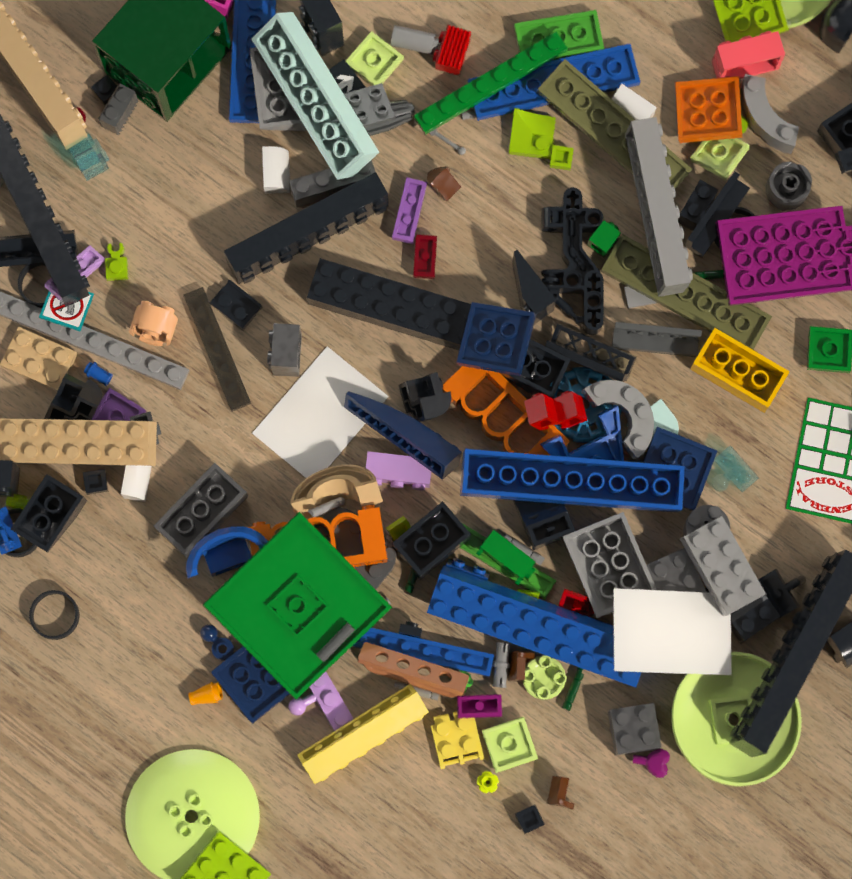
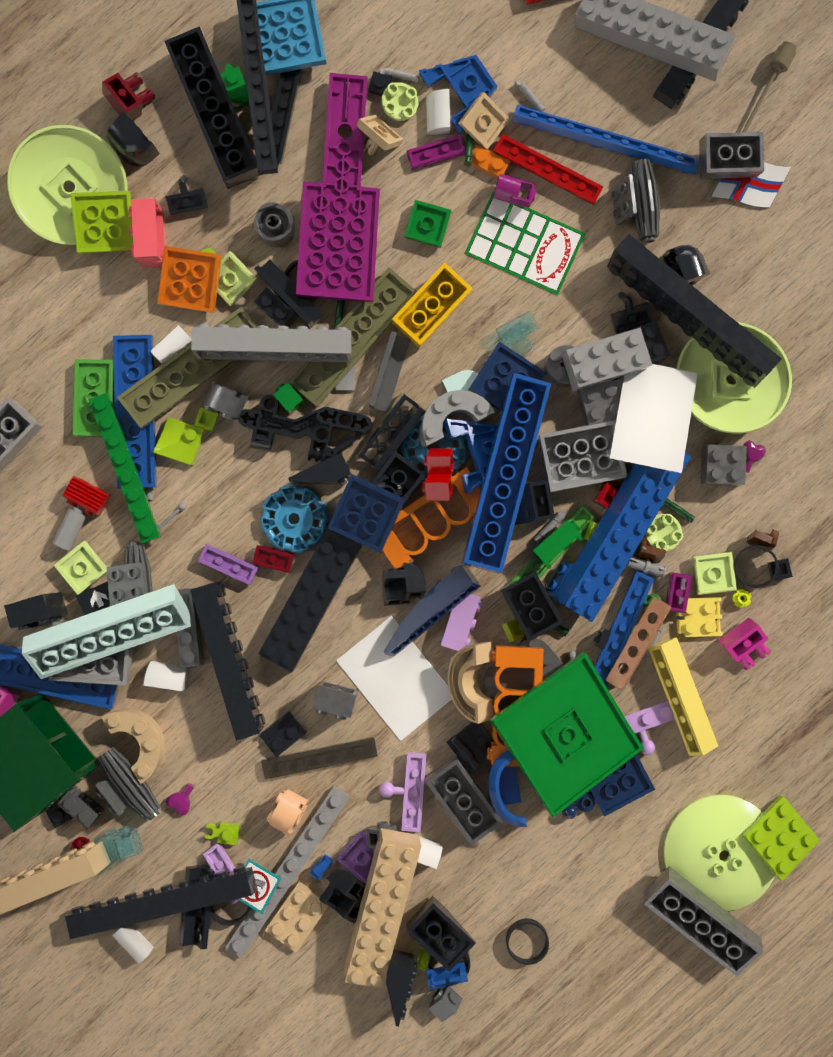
camera: 75 degrees left, 10 degrees up
(95, 481) = (419, 886): black plate -> none
(113, 804) = (703, 921): none -> flat silver brick
(143, 210) = (180, 800): none -> magenta rock
(148, 149) = (124, 788): none -> dark grey plate
(198, 455) = (412, 791): none -> lavender plate
(206, 694) = (622, 822): light orange cone -> none
(208, 163) = (146, 732): none -> tan brick
(261, 506) = (471, 745): none -> black plate
(327, 506) = (485, 691): light grey wheel -> none
(335, 641) = (605, 707): dark grey piece -> none
(440, 789) = (743, 640): none -> dark pink brick
(443, 182) = (208, 529): reddish brown tile -> none
(478, 257) = (305, 514): none -> dark azure plate
(527, 767) = (752, 585): none -> black tyre
(585, 171) = (224, 400): none -> flat silver brick
(763, 119) = (207, 233): light grey brick -> none
(794, 90) = (186, 199): none -> black plate

